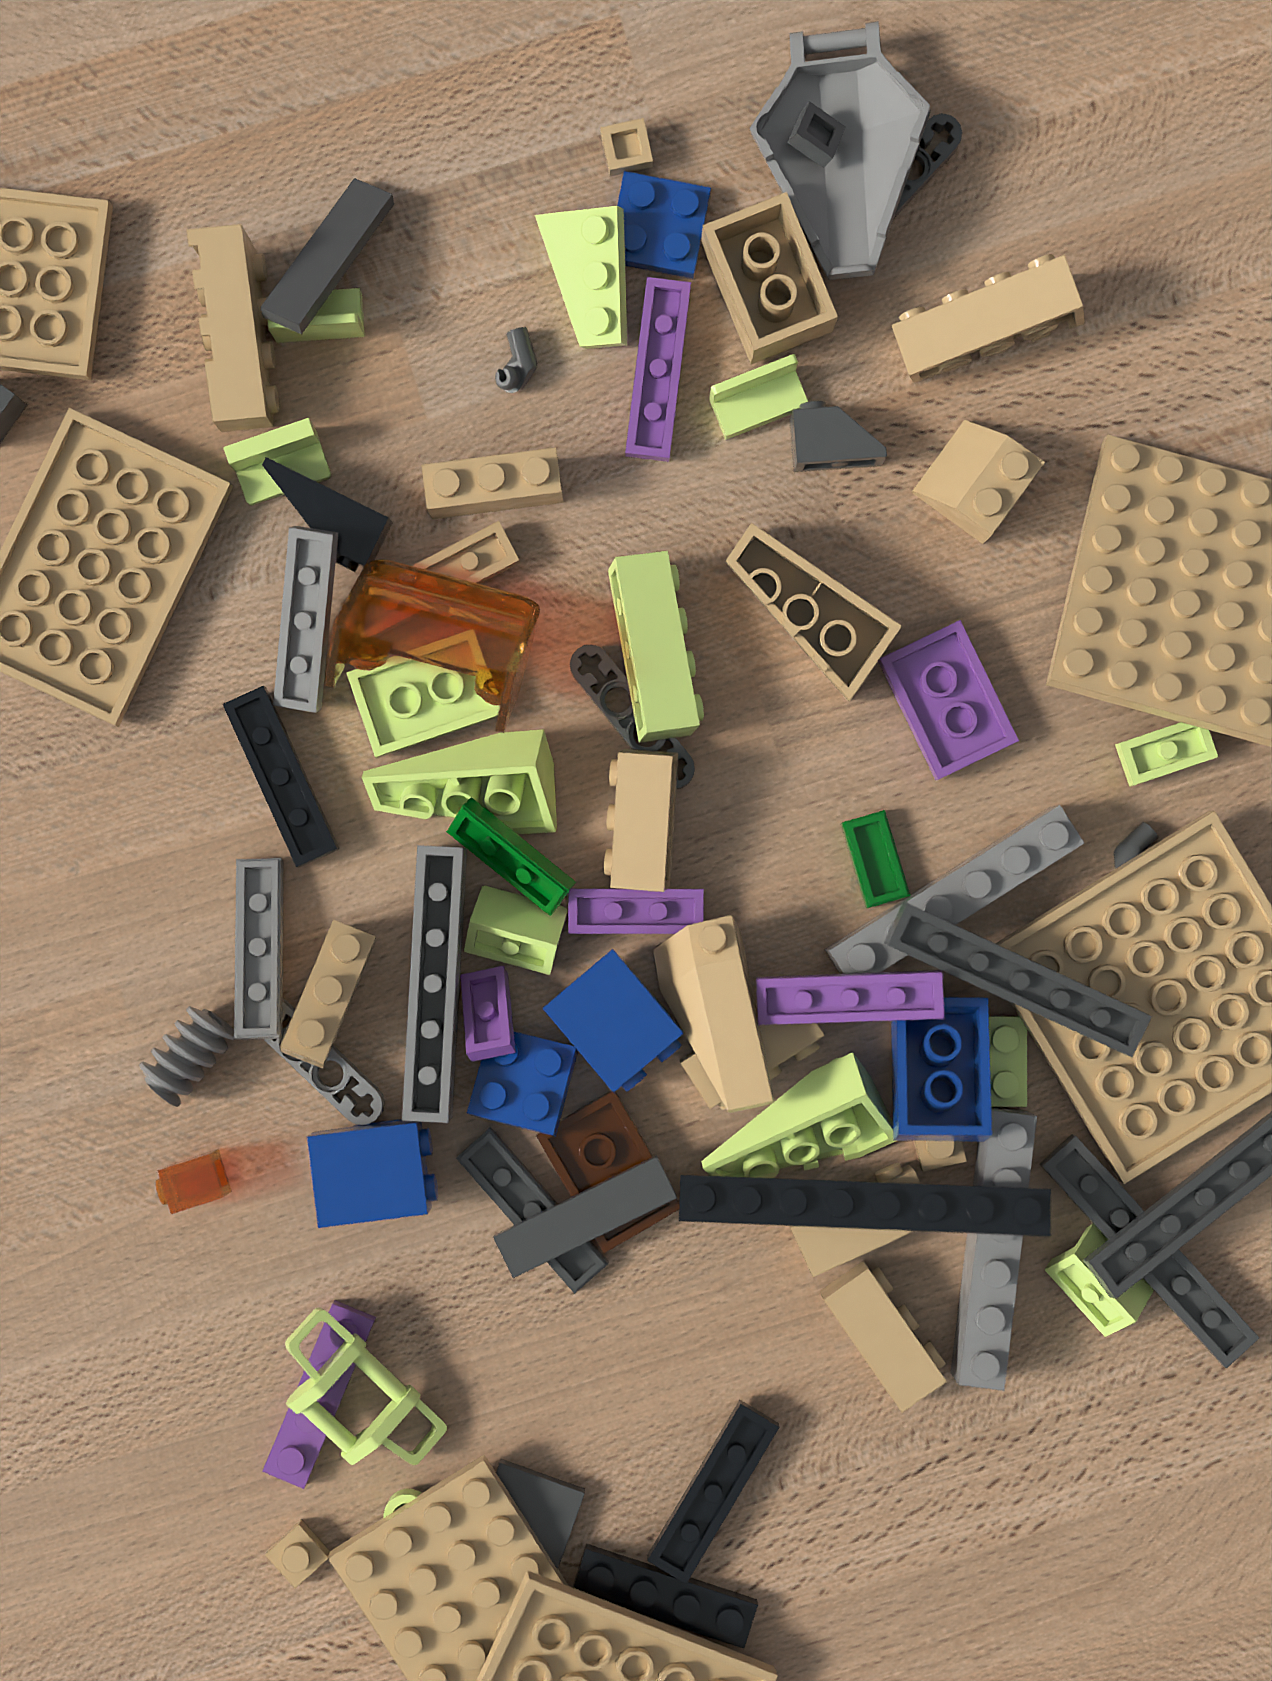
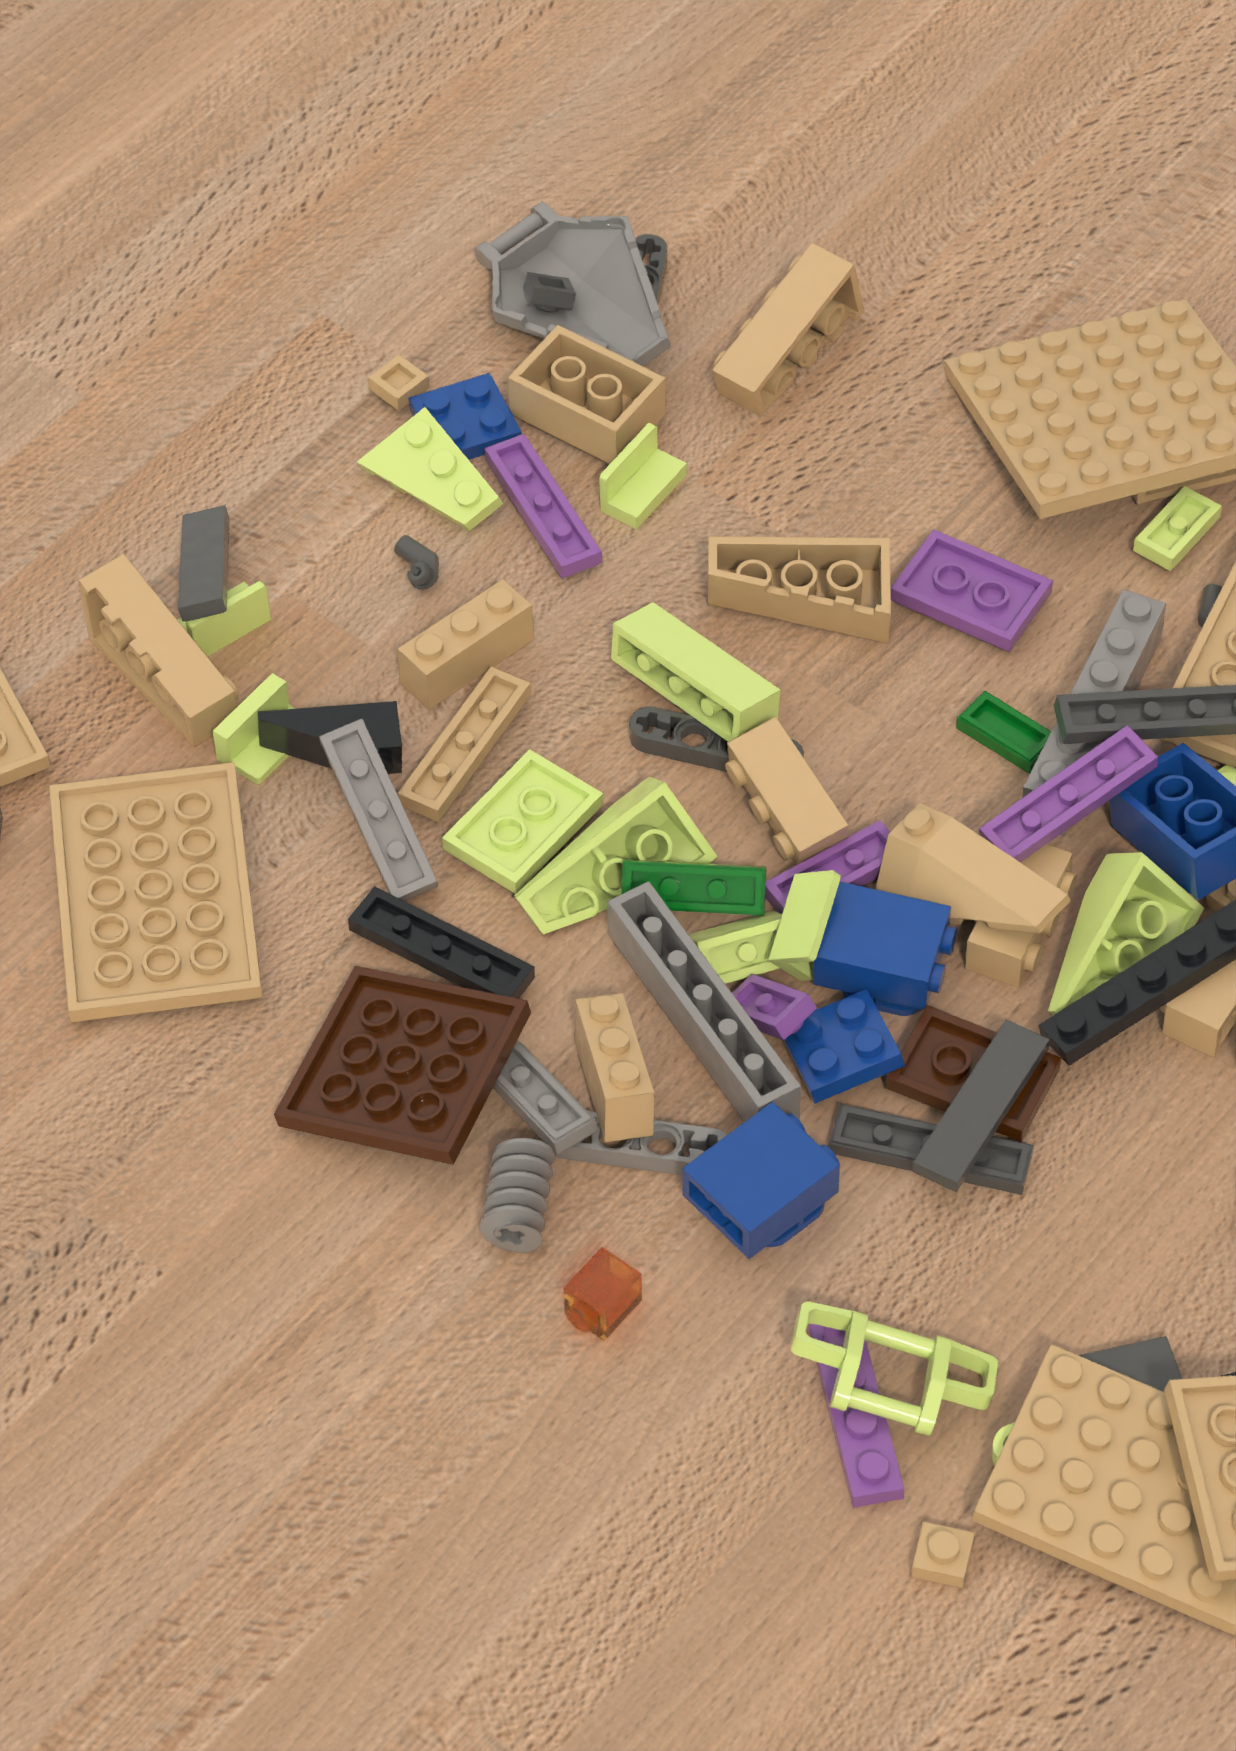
camera: 30 degrees left, 35 degrees down
(174, 878) = (403, 1064): none -> reddish brown plate
(439, 624) = (512, 750): clear orange windscreen -> none
(565, 963) = (804, 922): none -> yellowish green panel
(831, 440) = (727, 474): dark grey slope -> none
(978, 479) = (867, 437): tan slope -> none

